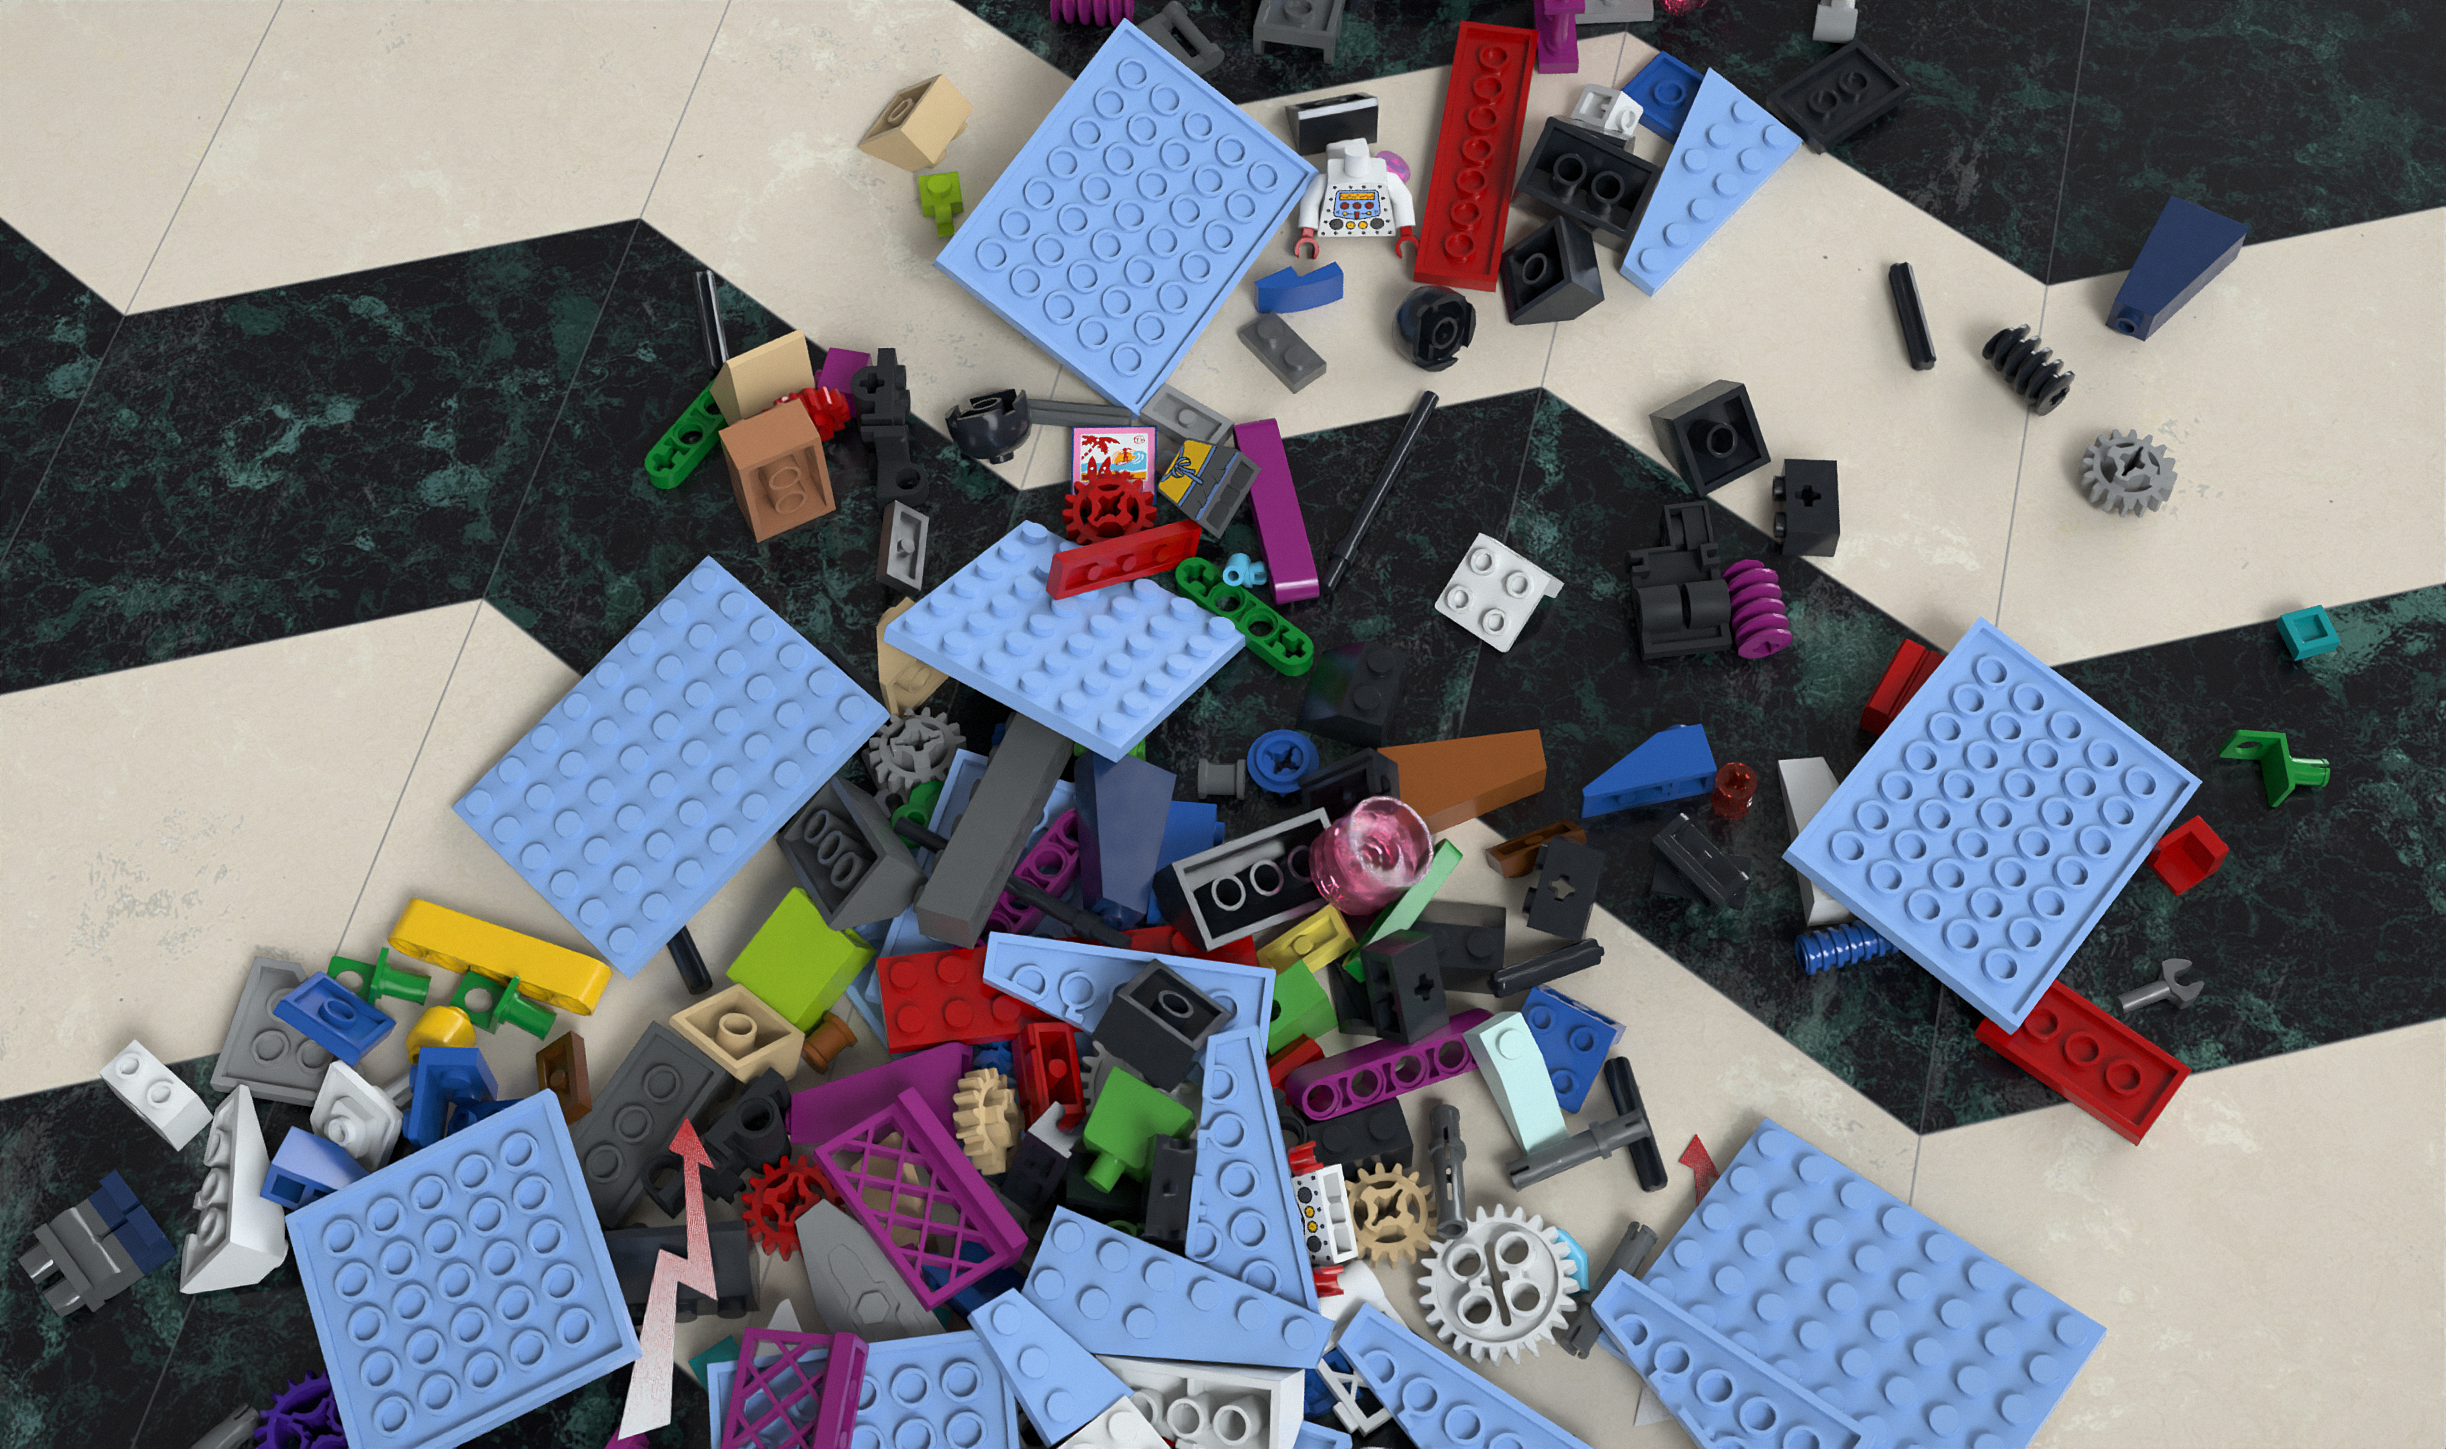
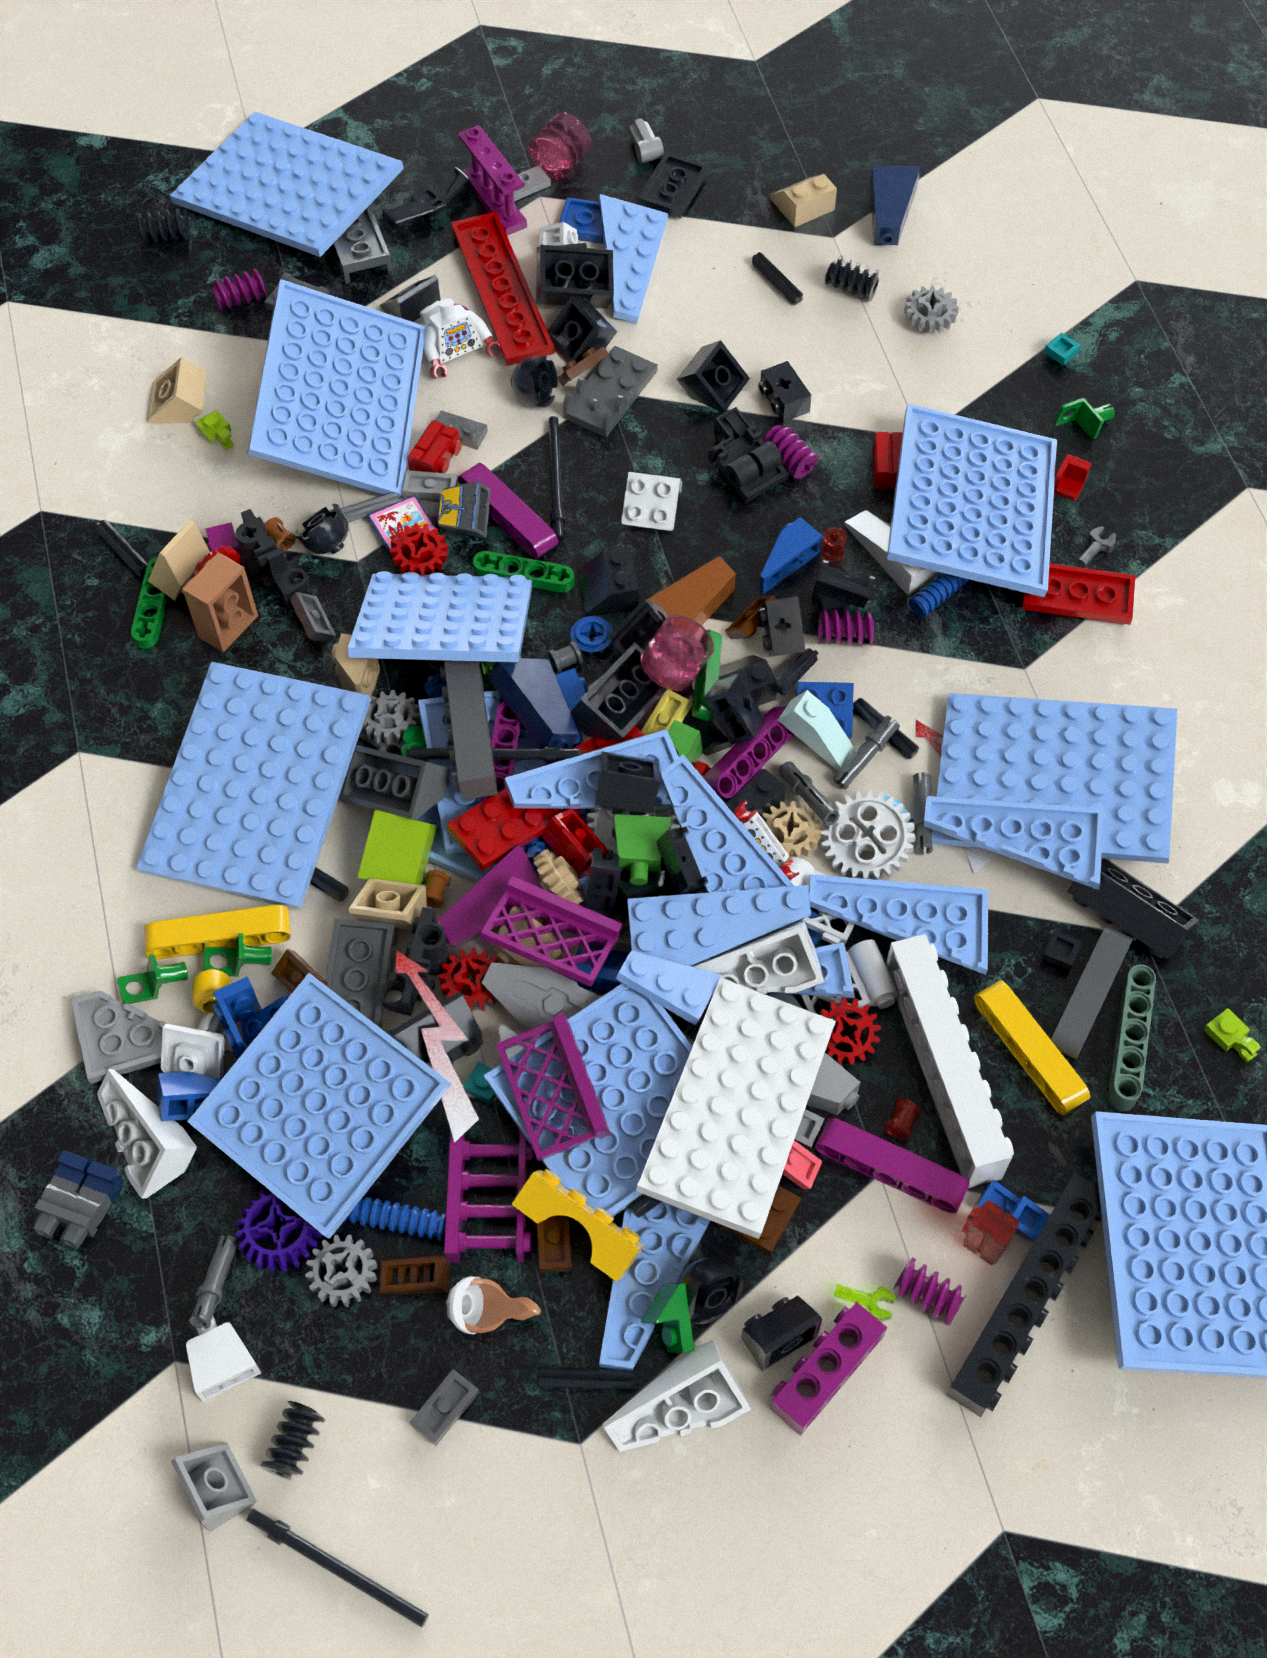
camera: 30 degrees left, 0 degrees up
(156, 1095) = (58, 1101): white brick -> none
(335, 1018) = (145, 1005): blue tile -> none
(929, 399) = (279, 533): none -> dark orange bush
(1122, 559) = (445, 566): red plate -> none
(1225, 368) = (435, 449): none -> red brick
(1241, 571) = (511, 548): medium azure arm -> none
(1289, 293) = (447, 396): blue slope -> none
(1538, 325) = (574, 369): none -> reddish brown plate
(1540, 388) = (608, 391): none -> dark grey hinge
(1668, 935) = (845, 627): none -> magenta piece
(2035, 206) = (806, 199): none -> tan slope

